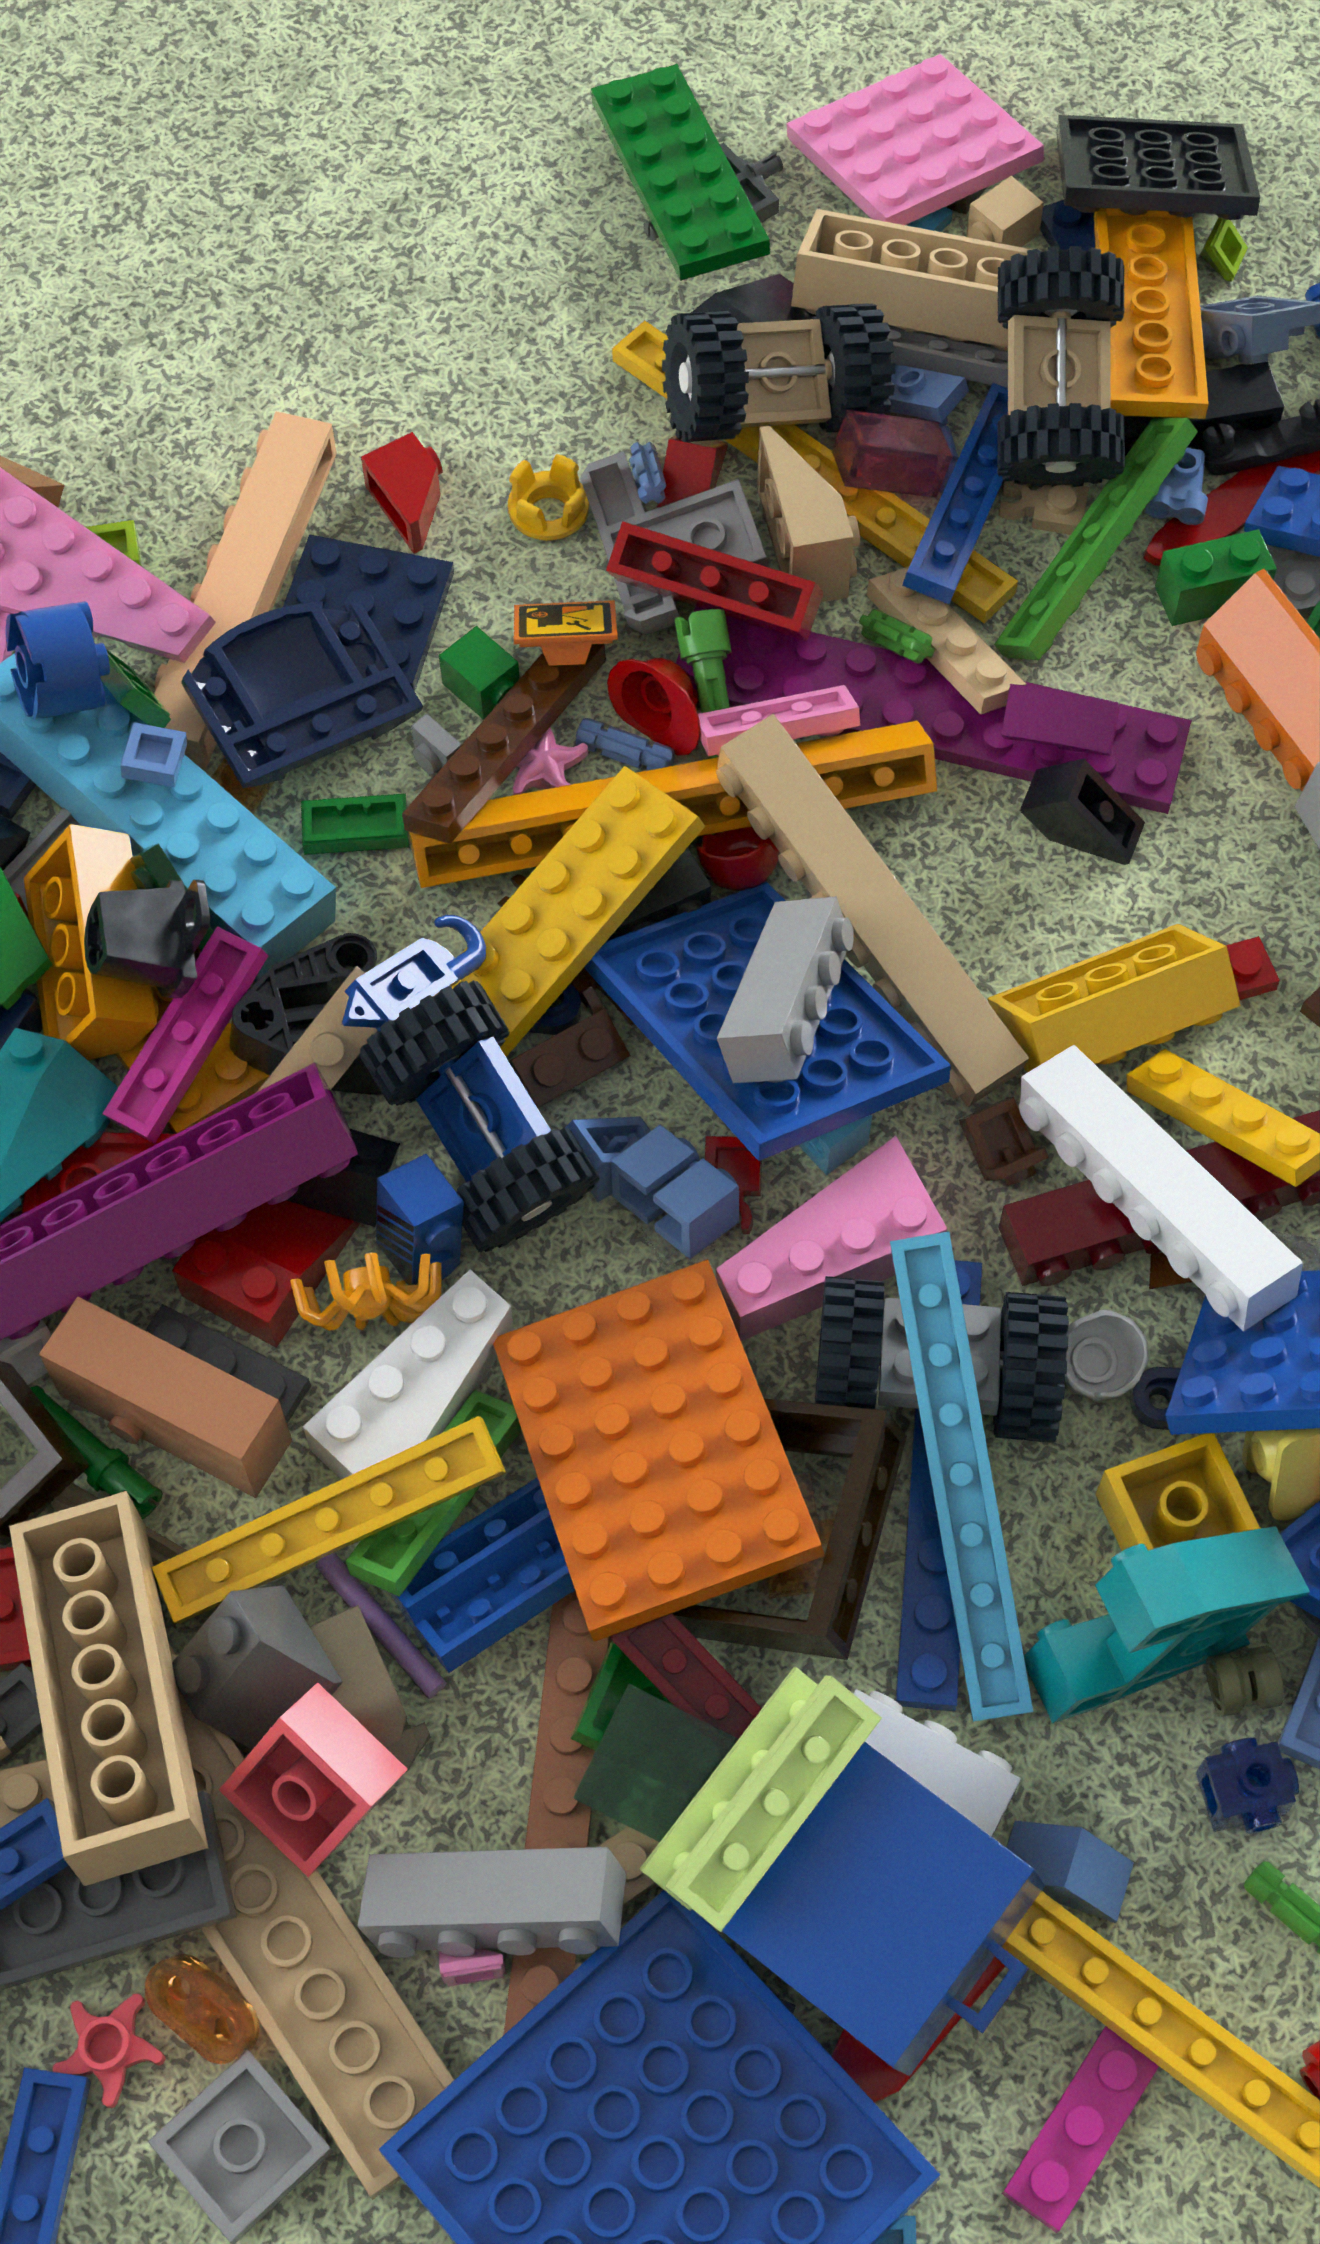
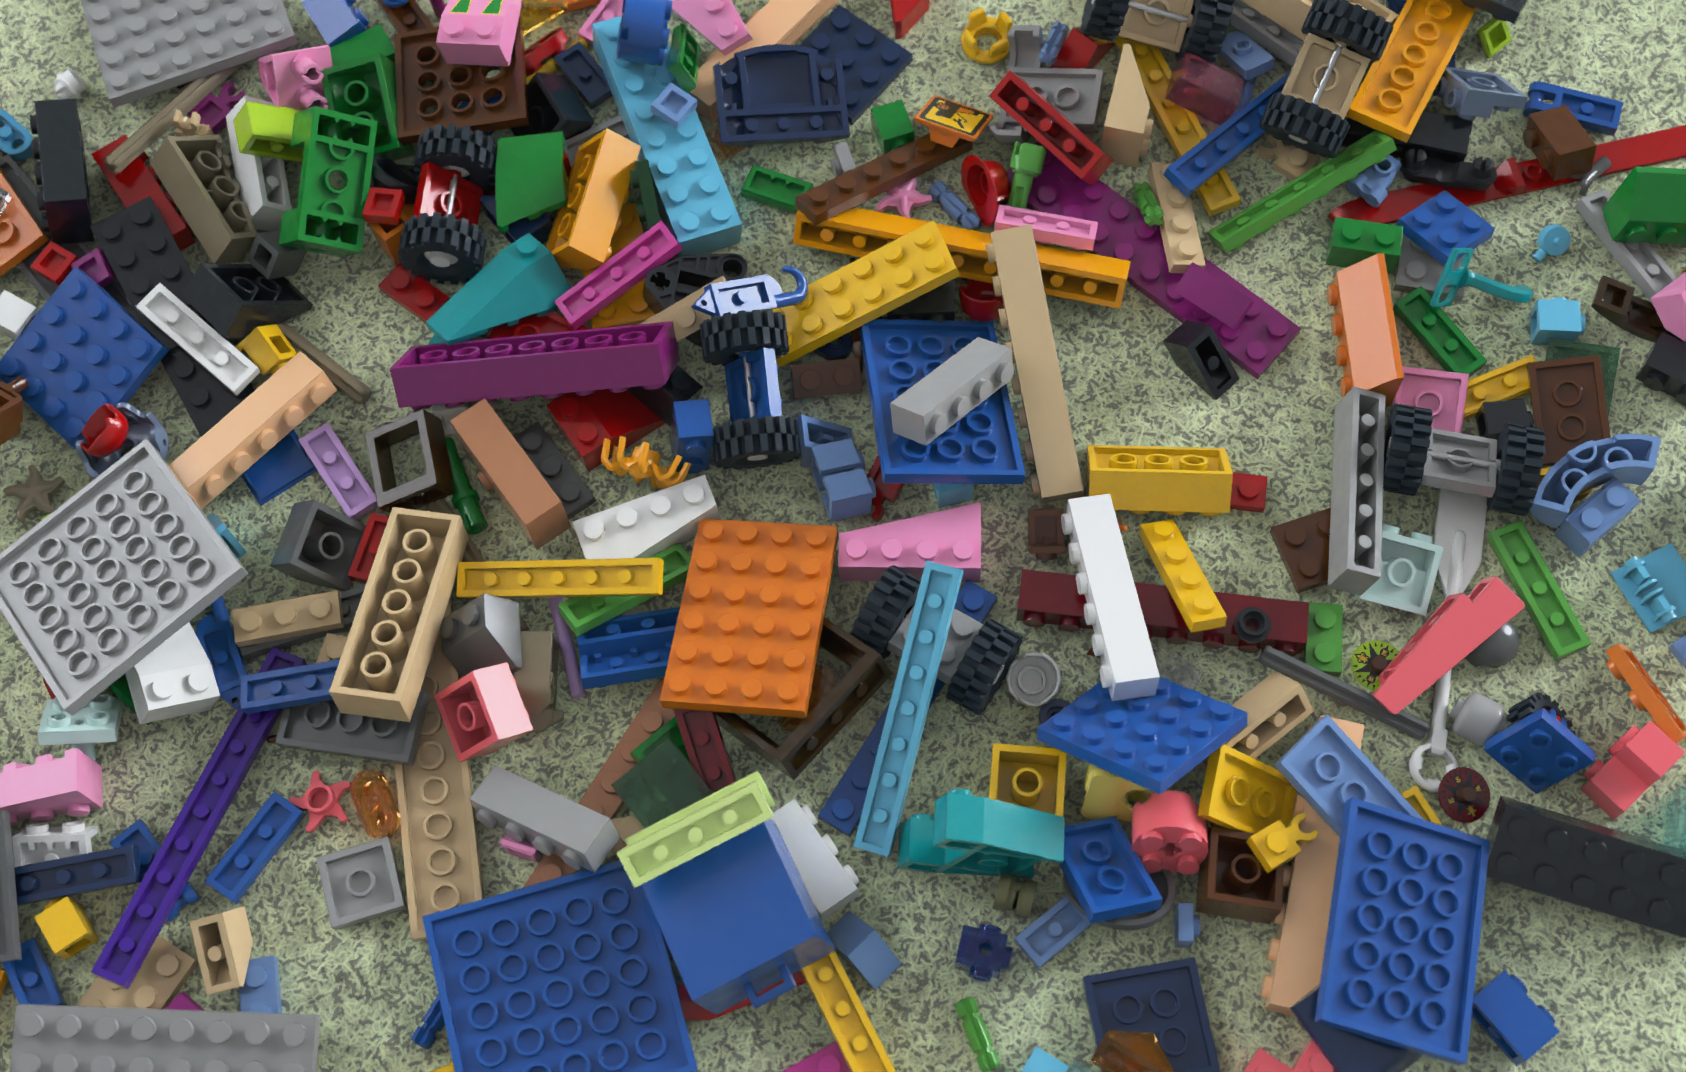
camera: 30 degrees right, 5 degrees up
(148, 935) = (614, 210): black container -> none

